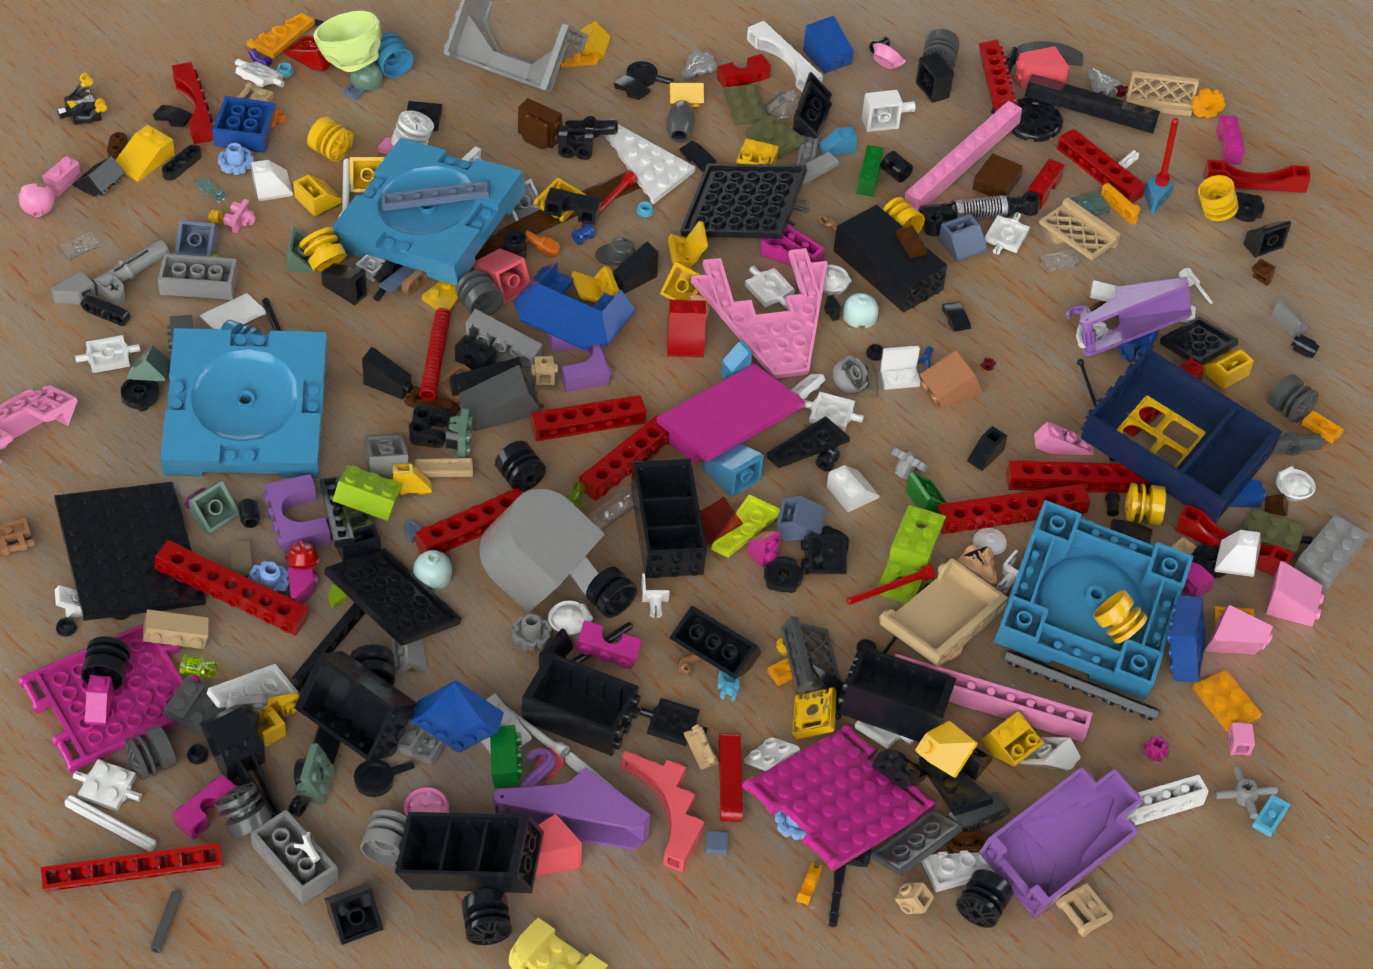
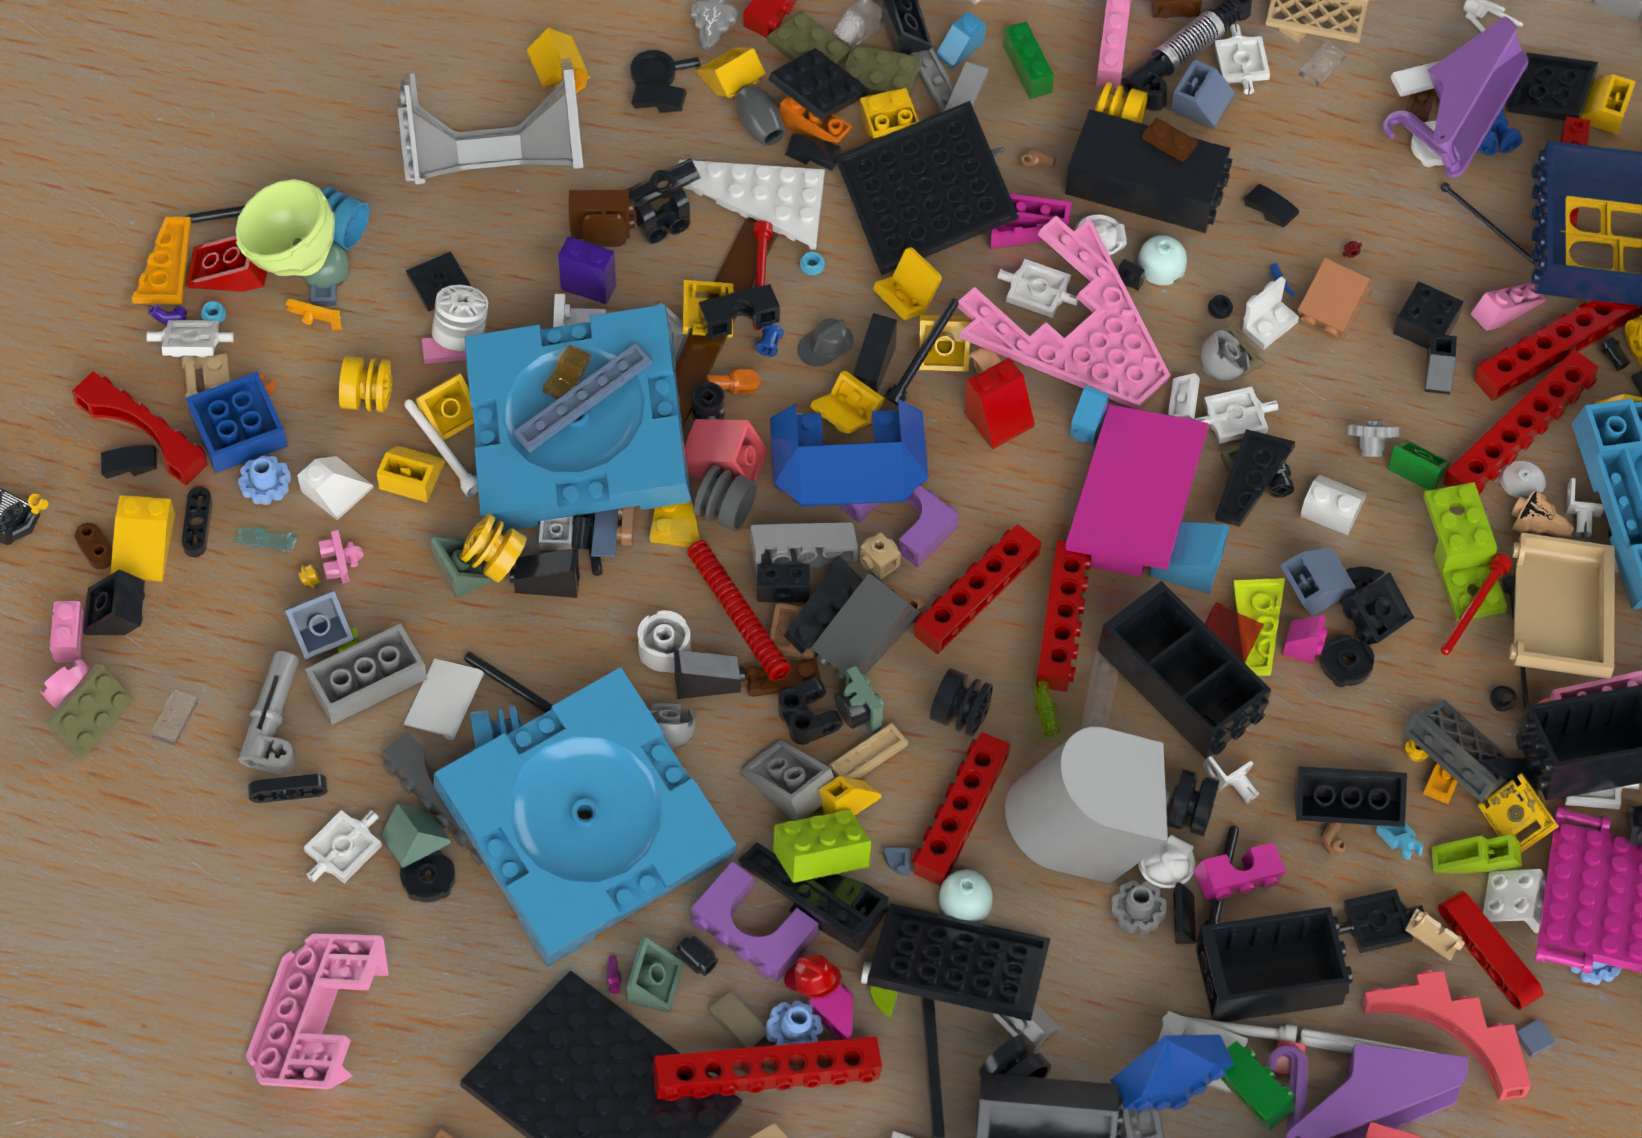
camera: 30 degrees left, 10 degrees up
(35, 216) = (89, 710): none -> olive plate
(73, 289) = (225, 783): light grey slope -> none
(340, 389) = (675, 723): none -> light grey cylinder
(341, 97) = (313, 312): none -> light orange piece
(381, 339) = (659, 637): none -> white brick
(442, 177) = (568, 372): none -> clear orange slope
(505, 144) = (587, 270): none -> dark purple brick
(634, 296) = (899, 390): none -> black piece
(709, 135) = (805, 123): none -> orange slope
(726, 119) = (818, 84): none -> black plate
(770, 721) = (1477, 855): none -> lime slope
(896, 166) = (1062, 39): black wheel -> none
(1004, 416) = (1427, 313): none -> black brick

